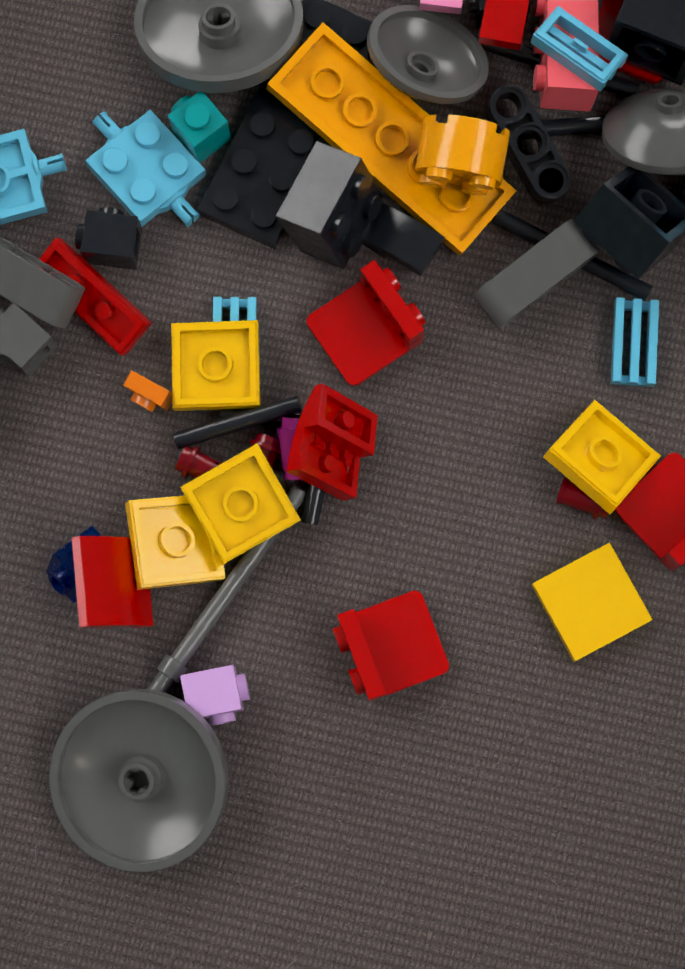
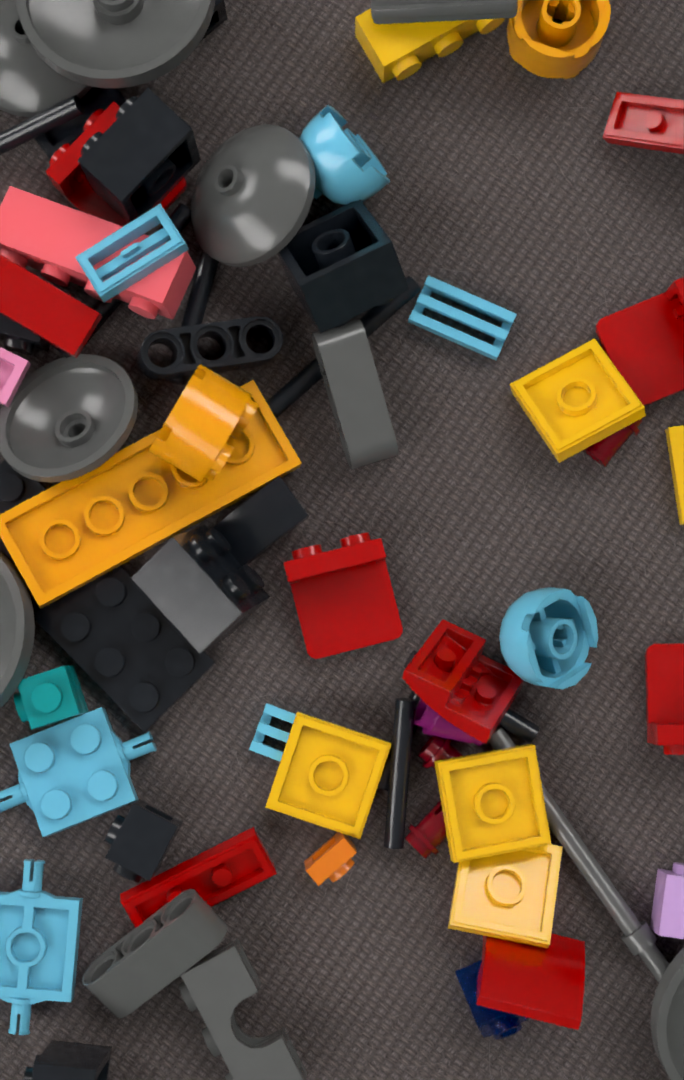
camera: 65 degrees left, 5 degrees up
(394, 500) = (549, 637): none -> medium azure cylinder

